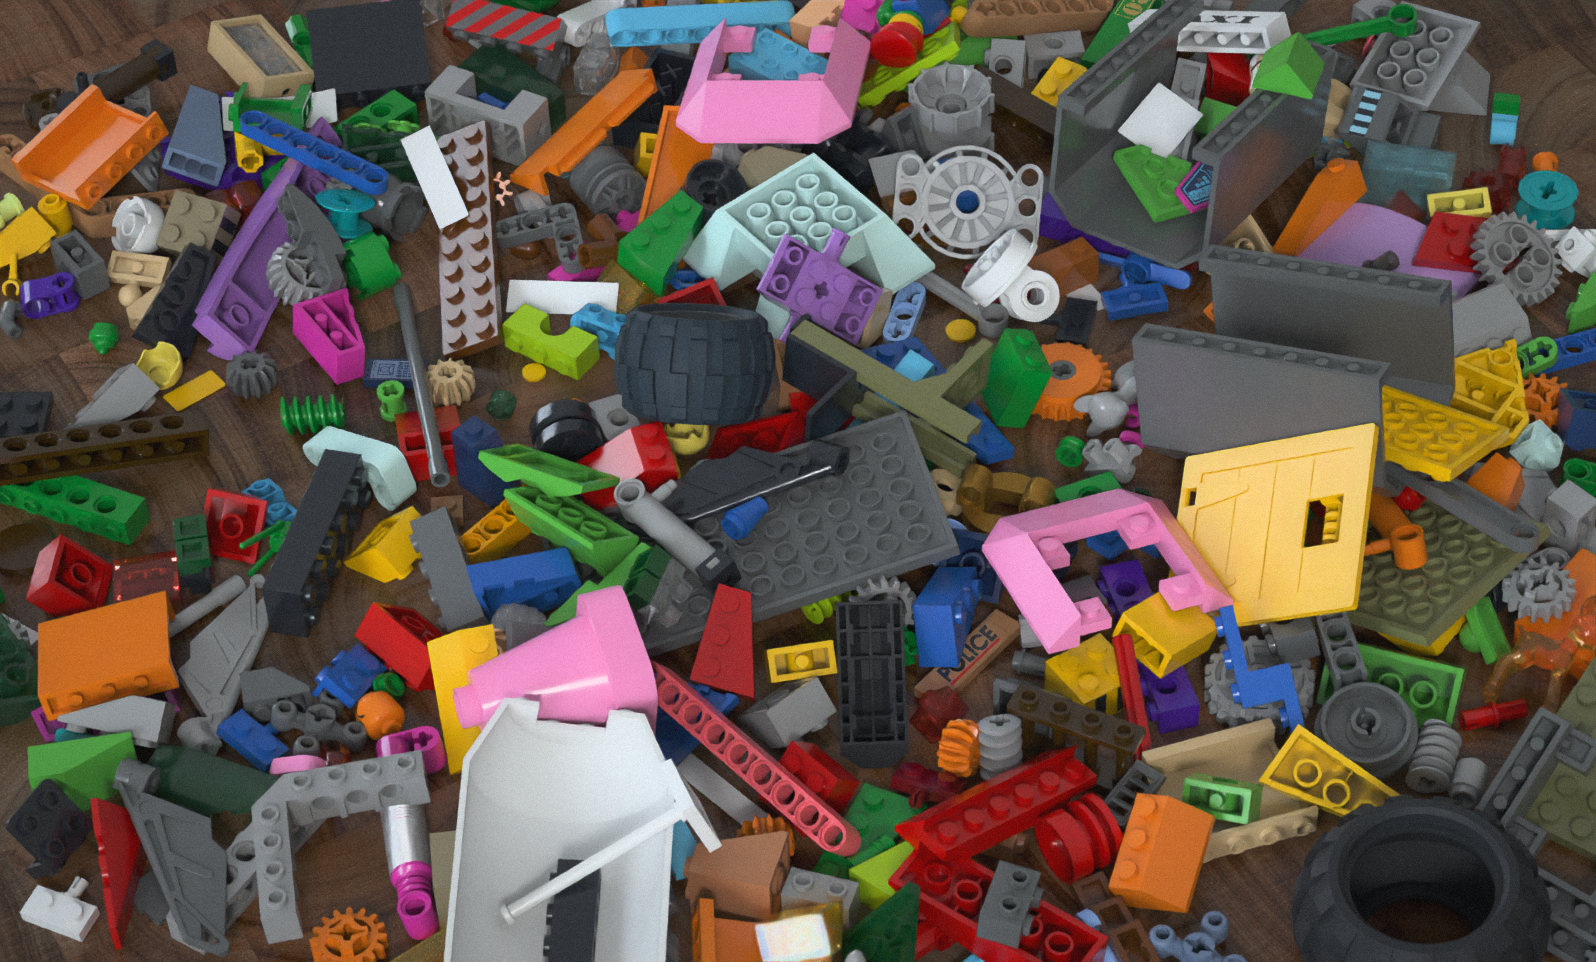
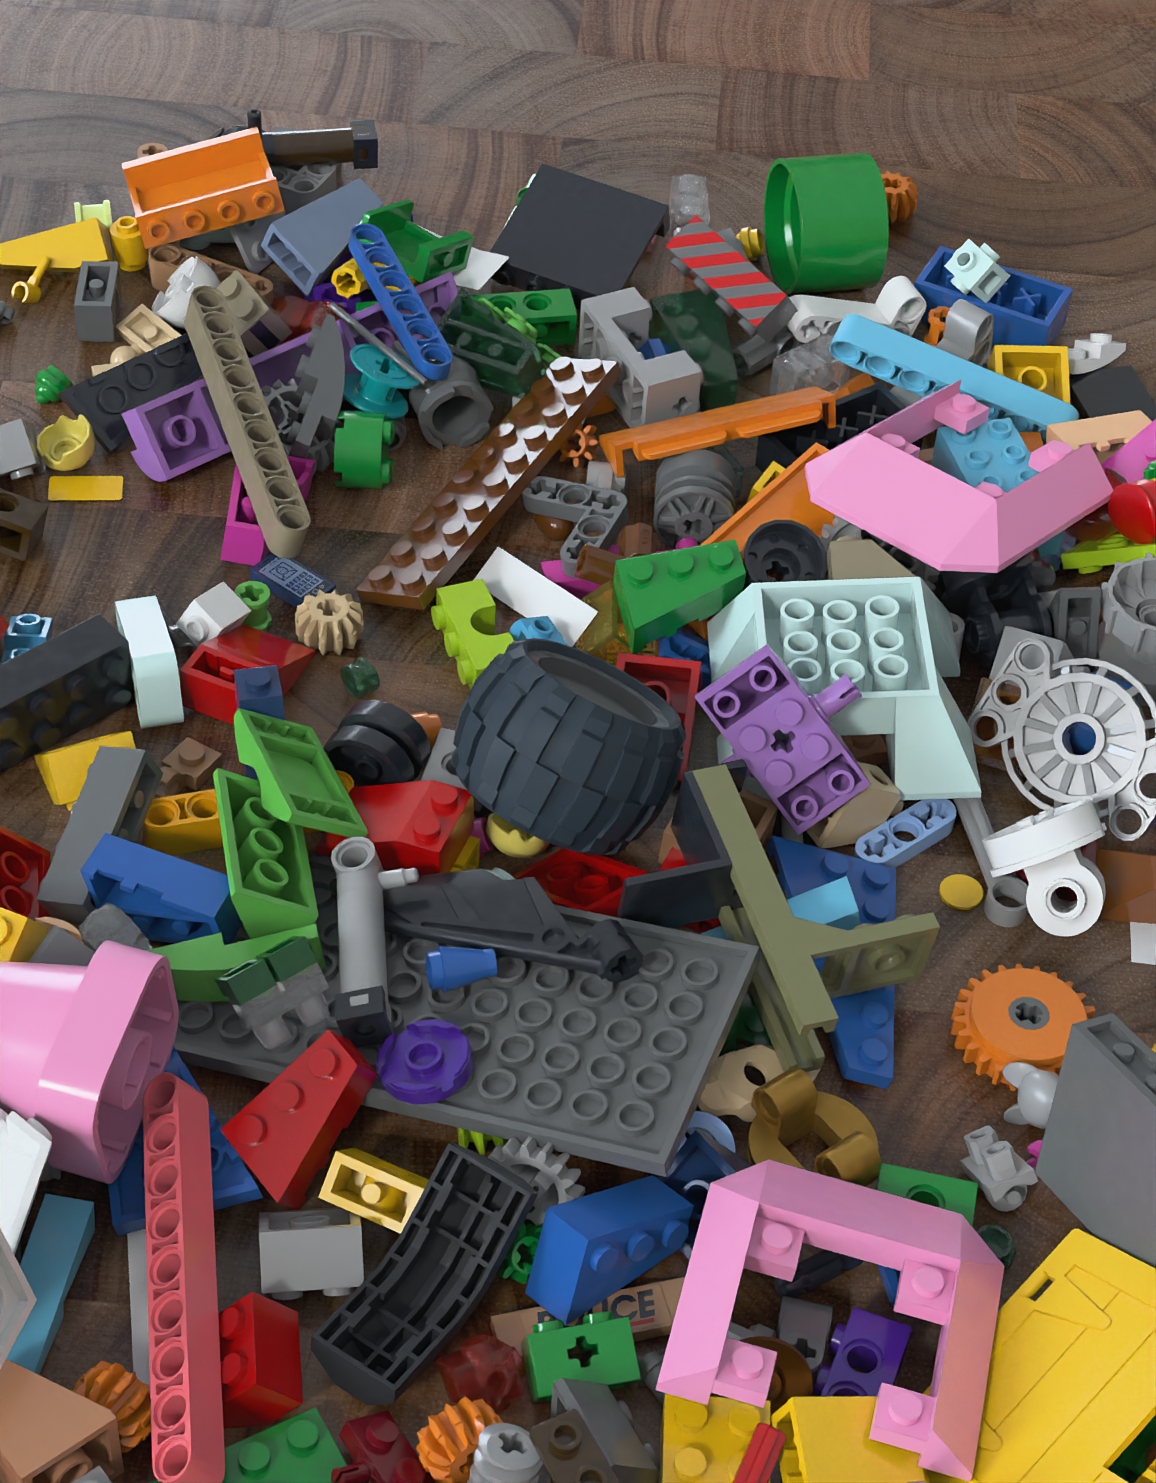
camera: 30 degrees right, 0 degrees up
(46, 296) = (42, 316): dark purple piece -> none
(251, 374) = (146, 500): dark grey gear -> none
(258, 55) = (470, 190): tan brick -> none
(290, 282) = (247, 423): none -> dark tan beam
(312, 414) = (158, 574): green piece -> none
(326, 188) = (379, 344): none -> dark grey axle
(379, 417) = (213, 614): none -> white brick
(434, 177) = (506, 393): white sticker -> none
(436, 462) = (192, 698): dark grey piece -> none
(534, 372) = (436, 663): yellow piece -> none
(773, 576) = (425, 1062): none -> dark purple tile
(976, 677) = (610, 1347): none -> green brick
(1015, 378) = (955, 988): green brick -> none
(1070, 451) = (957, 1123): green bush -> none
(1074, 321) = (1105, 963): black plate -> none

